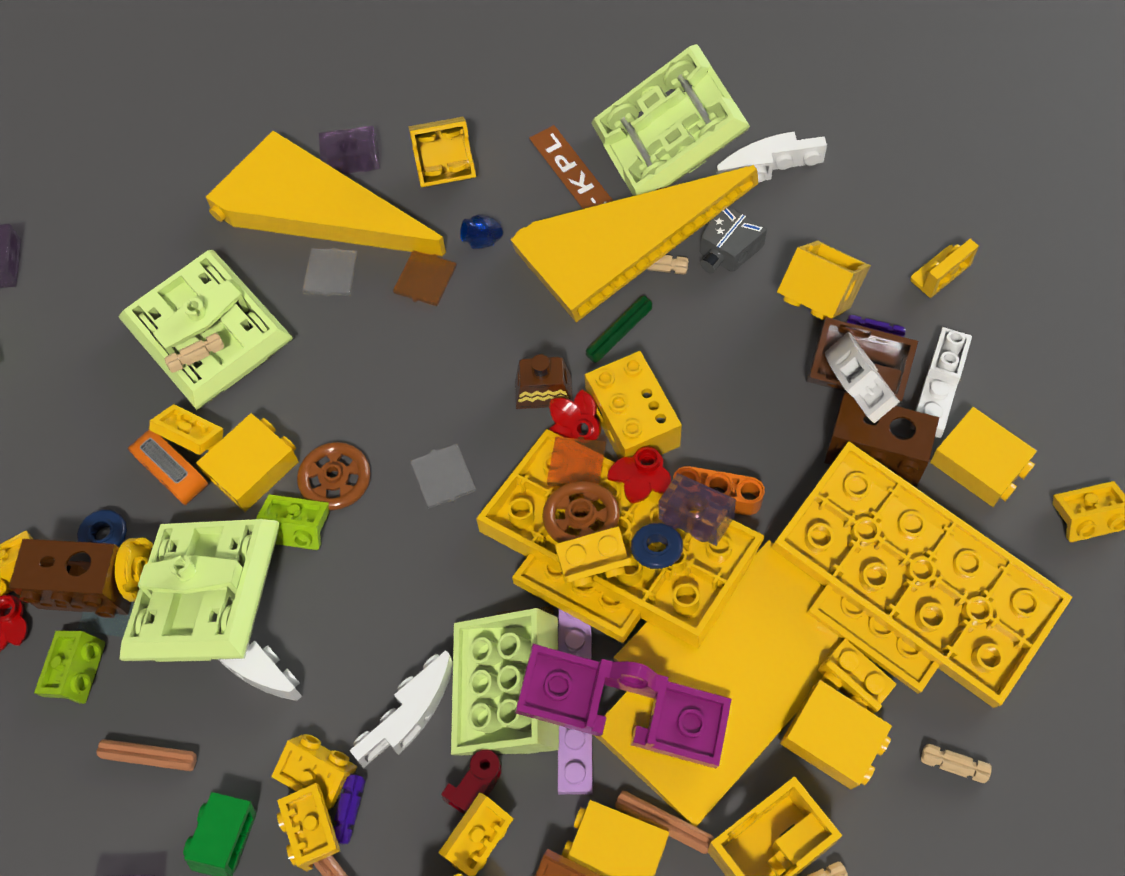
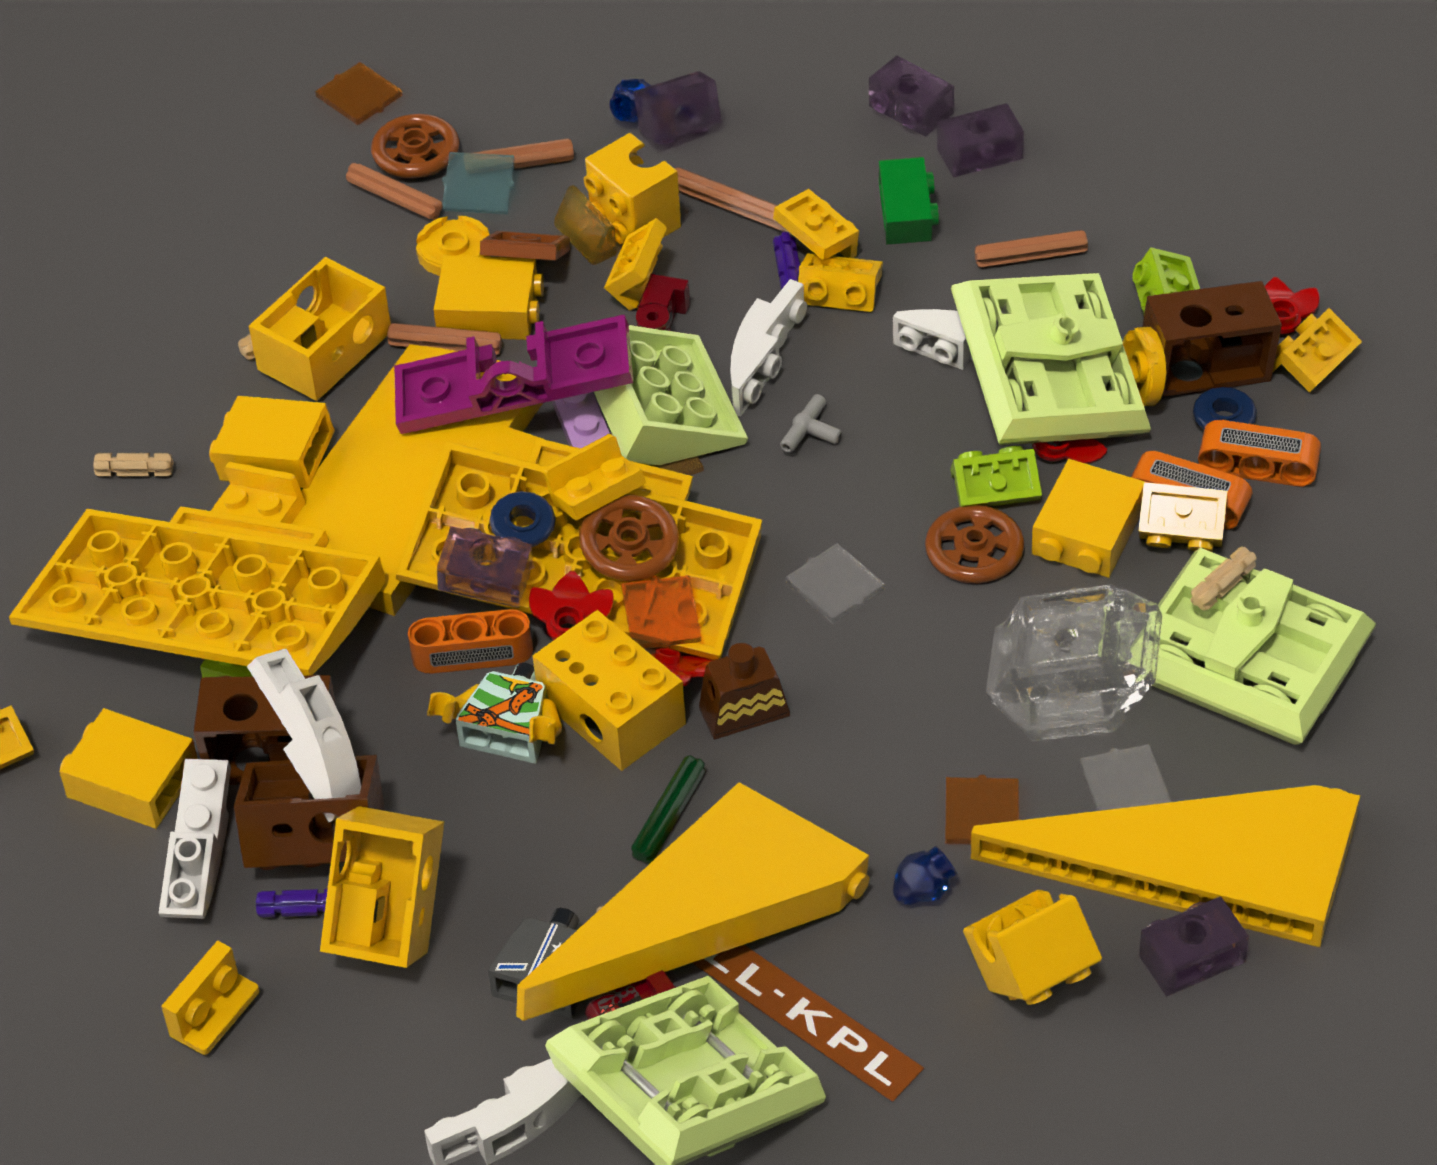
camera: 160 degrees right, 15 degrees down
(102, 482) = (1260, 452): none -> orange beam
(313, 373) = (1074, 660): none -> clear piece
(405, 624) = (806, 423): none -> light grey piece
(709, 419) = (502, 714): none -> torso

